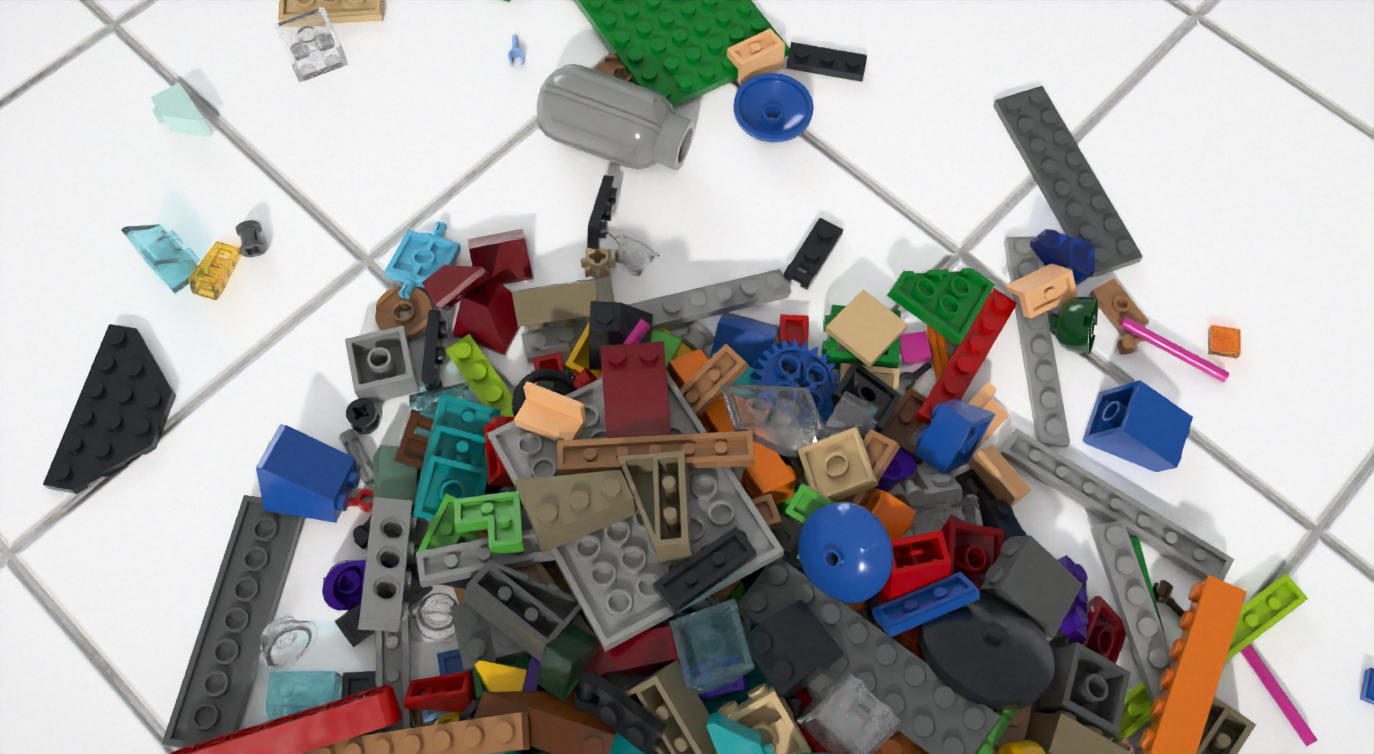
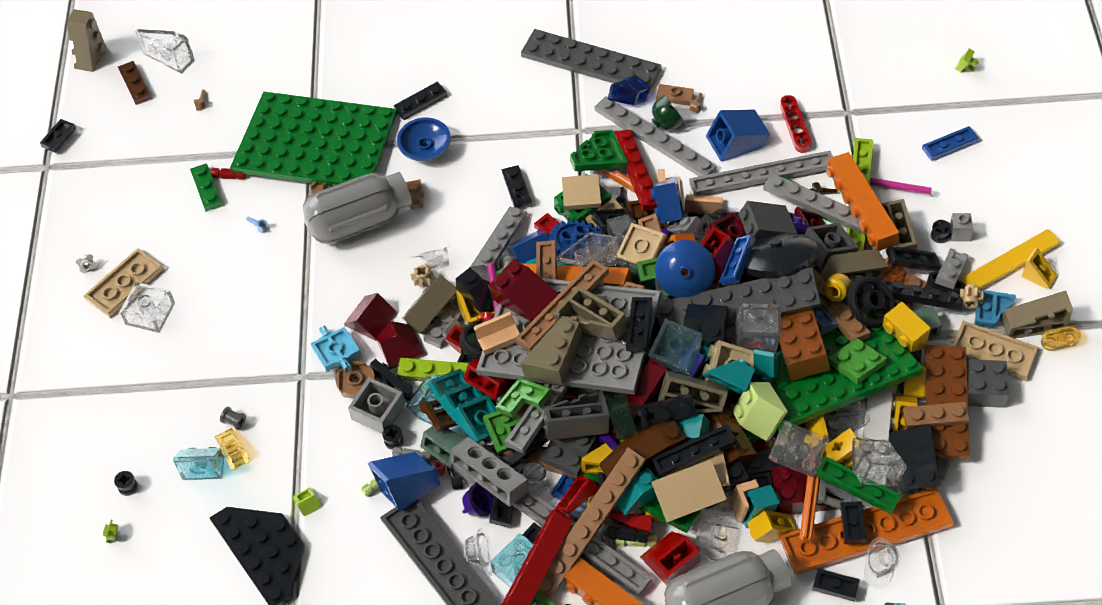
camera: 40 degrees left, 10 degrees down
(17, 247) = (110, 531): none -> lime plate
(88, 218) = (129, 487): none -> black wheel
(179, 112) = (115, 398): light aqua slope -> none
(210, 400) = (307, 501): none -> lime slope
(452, 282) = (369, 340): dark red slope -> none
(602, 212) = (399, 251): black plate -> none
(701, 158) = (416, 192): none -> medium nougat plate
(757, 55) = (386, 123): light nougat panel -> none
(915, 348) = (610, 184): dark pink tile -> none
(1043, 289) = (637, 111): light nougat panel -> none
(1174, 349) = (715, 91): dark pink bar -> none
(1224, 341) = (732, 70): clear orange tile -> none
(1232, 482) = (795, 123): none -> red beam

